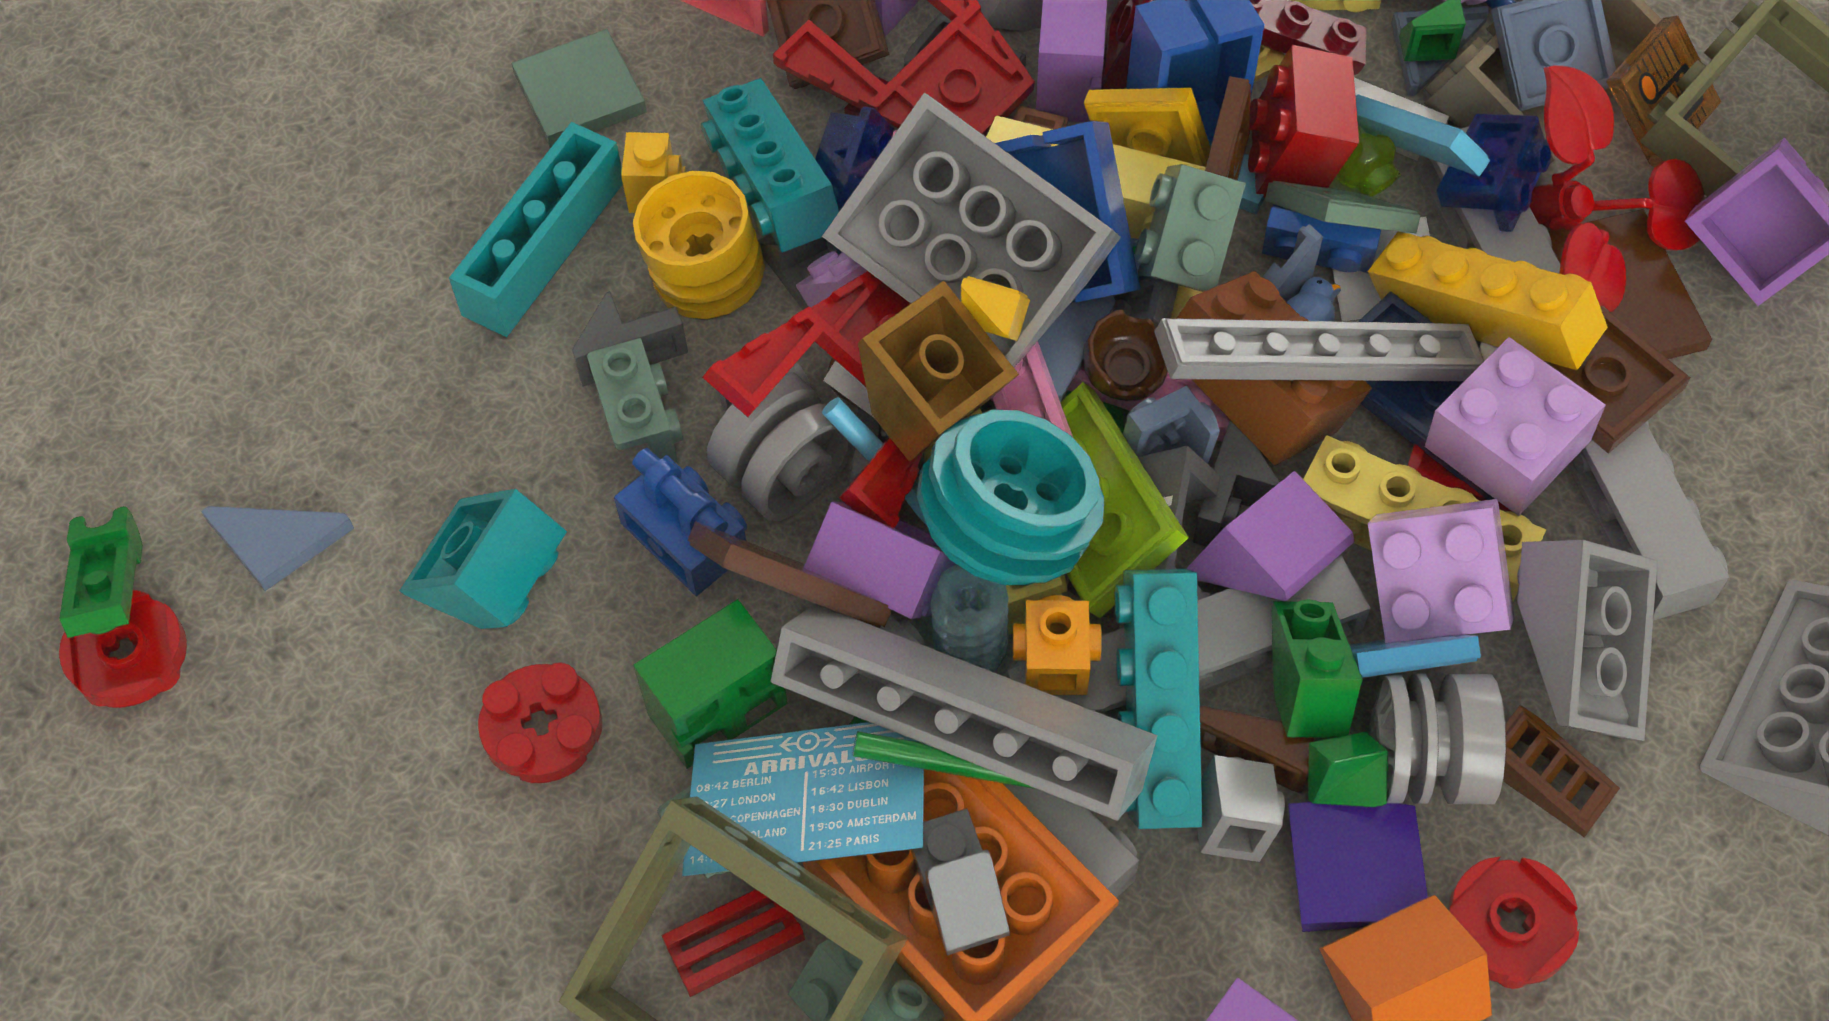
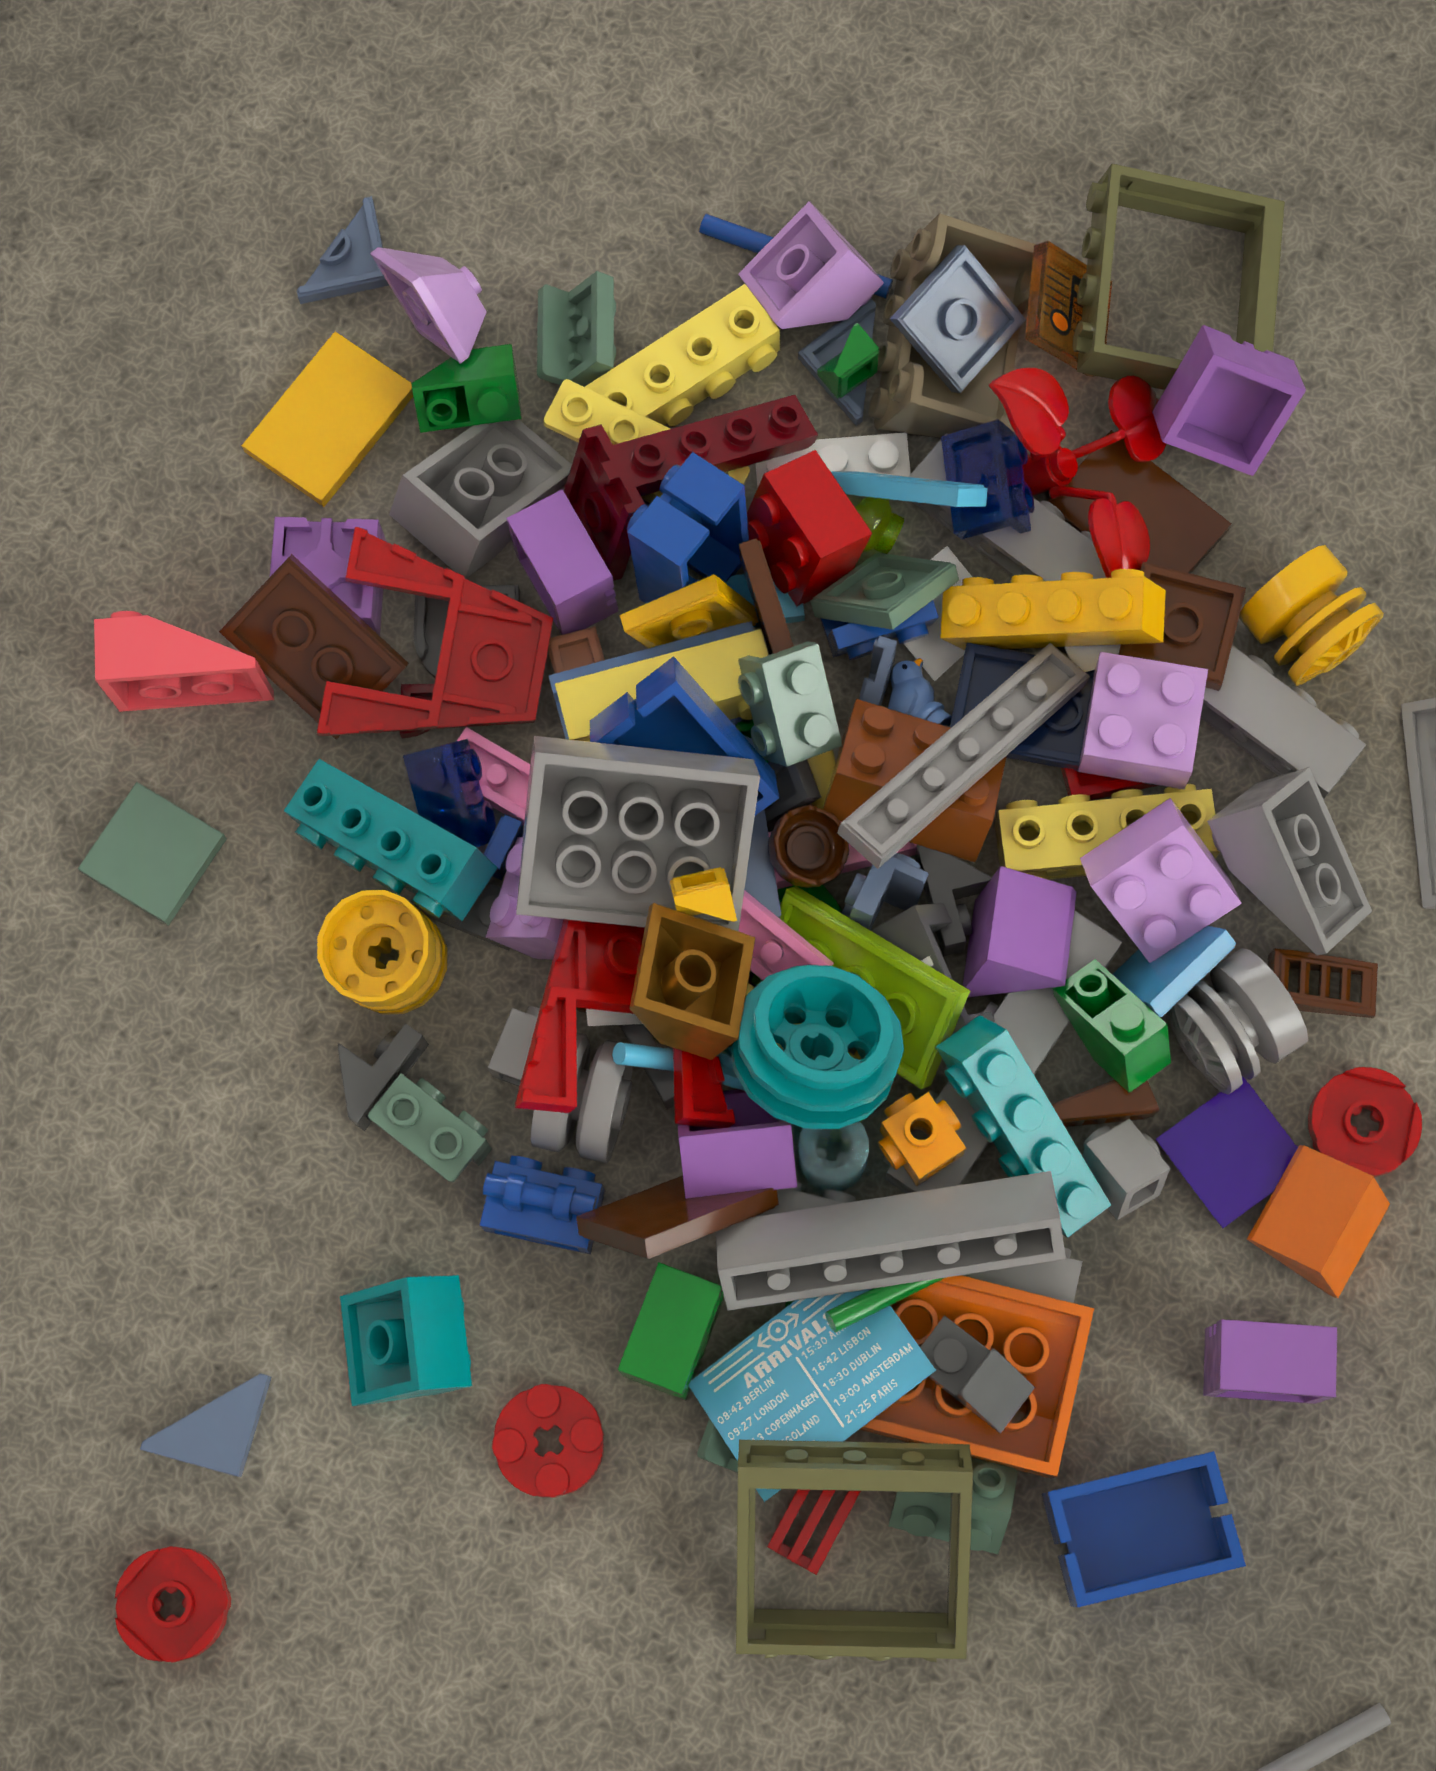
camera: 30 degrees left, 15 degrees up
(100, 574) = (114, 1564): green plate -> none
(537, 229) = (230, 1020): teal brick -> none
(646, 163) = (287, 904): yellow brick -> none
(1348, 771) = (1188, 1090): green slope -> none
(1742, 439) = (1306, 610): none -> yellow wheel

